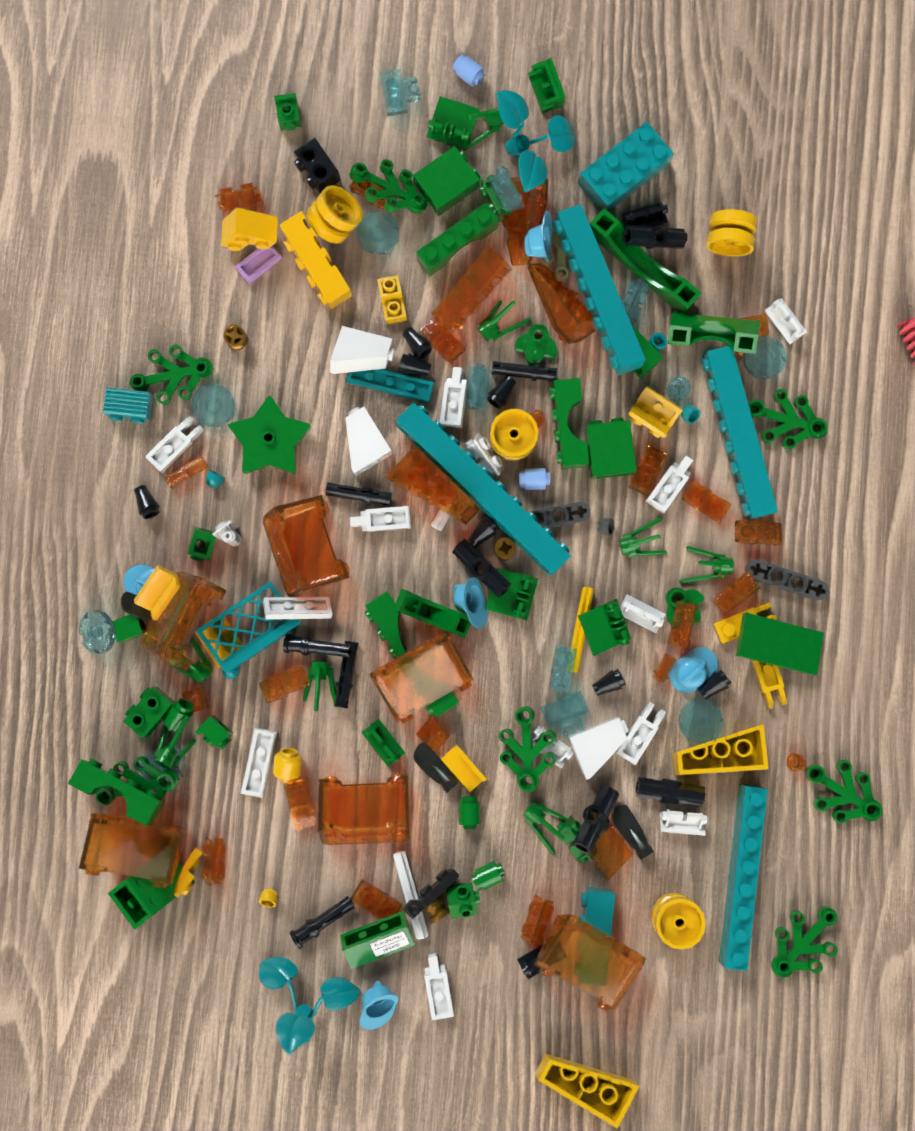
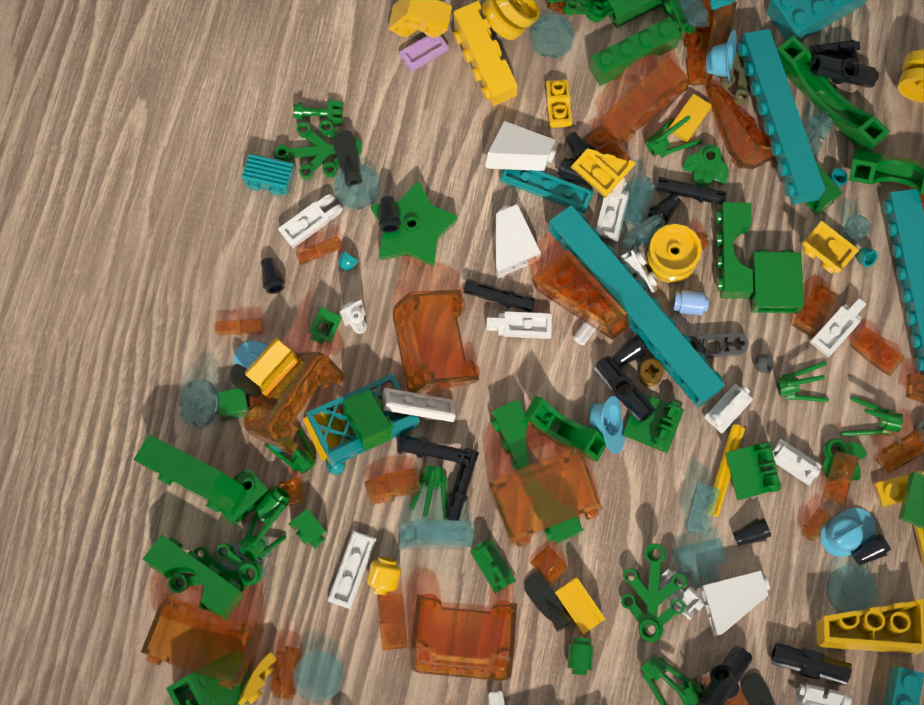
camera: 15 degrees right, 10 degrees down
(96, 702) = (189, 473): none -> green brick
(123, 554) = (239, 326): none -> clear orange axle
(177, 335) = (332, 112): none -> green hinge
(199, 379) = (347, 157): none -> pearl dark grey piece
(232, 333) = (388, 116): pearl gold wheel -> none
(241, 861) = (317, 676): none -> clear light blue tile
(245, 433) = (389, 217): none -> black cone
(252, 631) = (367, 419): none -> green brick
(328, 723) = (435, 534): none -> clear light blue slope
(439, 363) = (602, 170): none -> yellow wing
(483, 418) = (643, 232): none -> clear light blue tile
(520, 293) = (697, 110): none -> yellow tile
(578, 572) = (729, 408): none -> white hinge
(640, 735) = (781, 596): white hinge -> none

